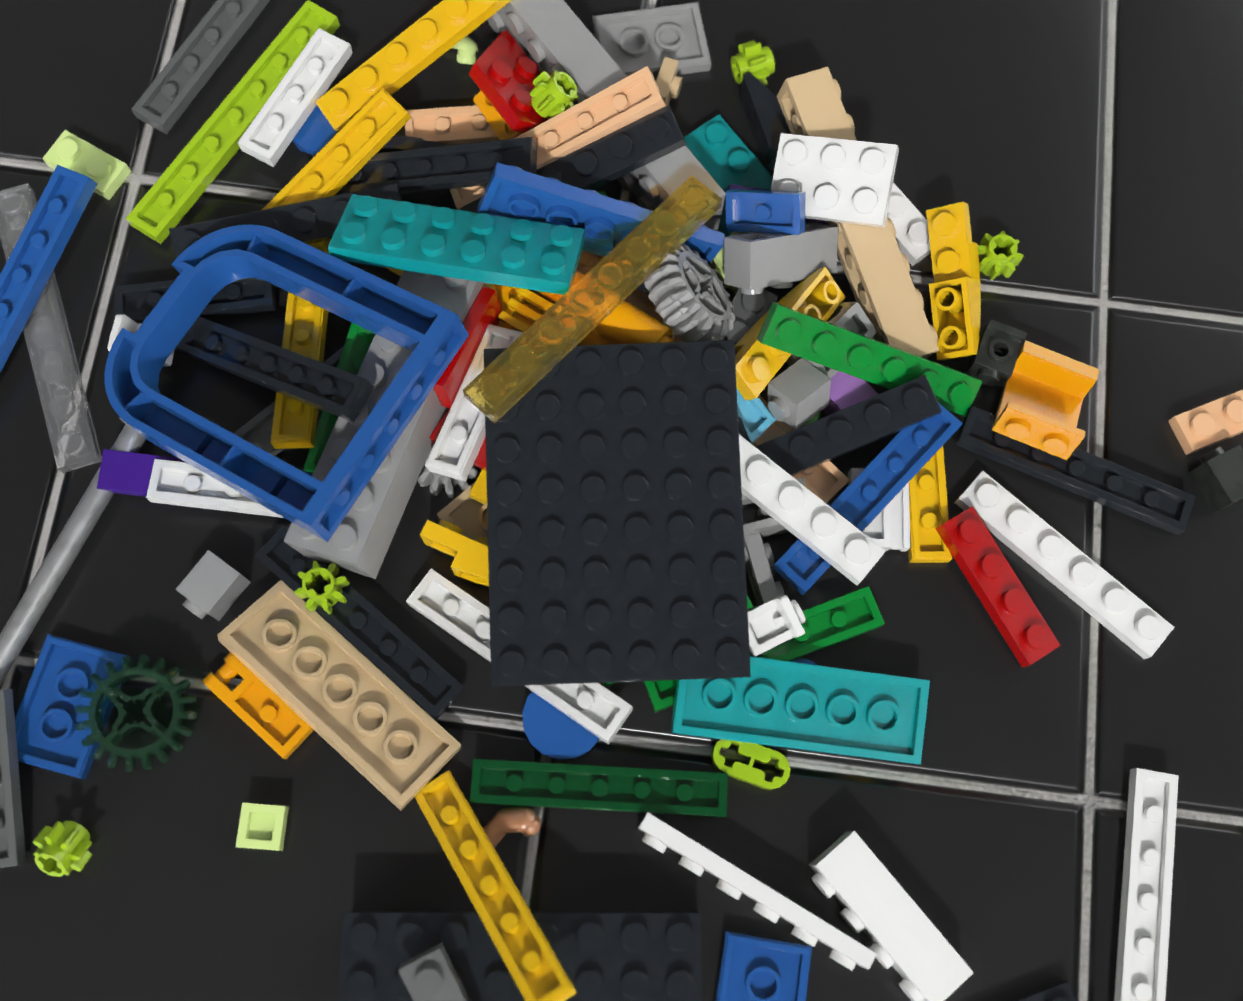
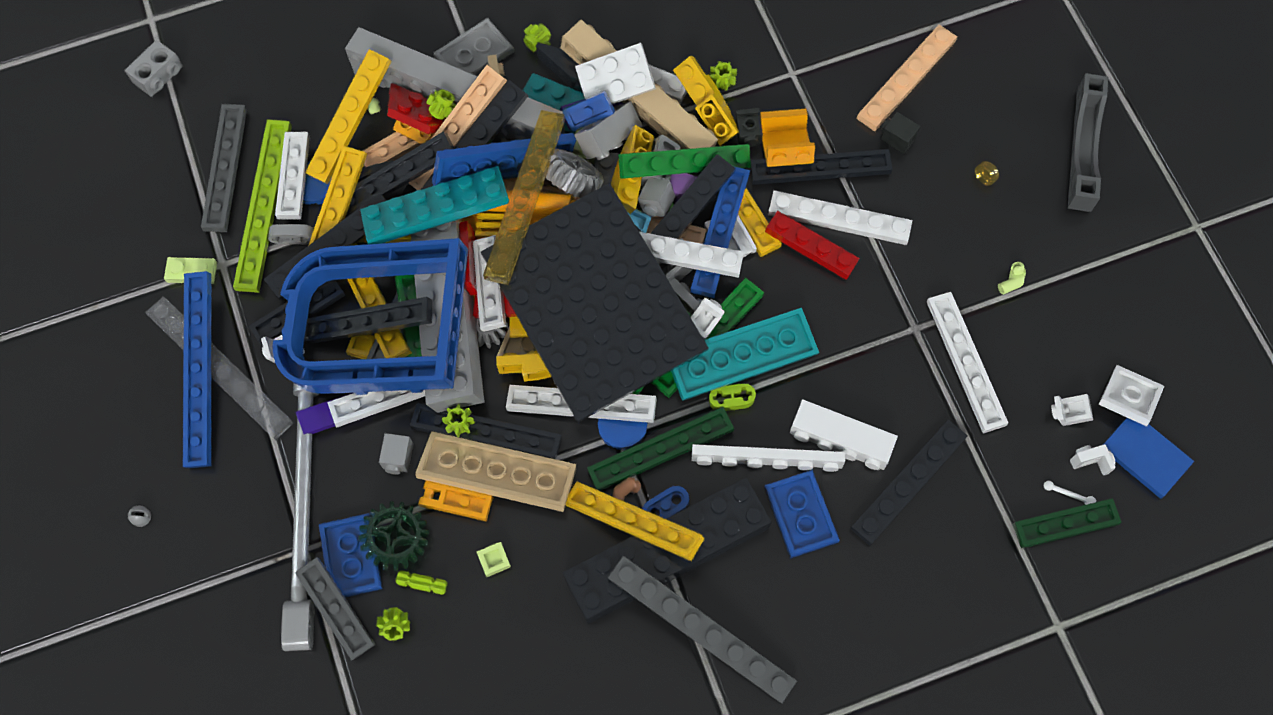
camera: 20 degrees left, 5 degrees down
(142, 803) = (421, 582): none -> lime axle
(247, 180) = (290, 234): none -> light grey beam
(253, 397) = (360, 346): none -> yellow tile
(558, 880) = (664, 505): none -> blue plate

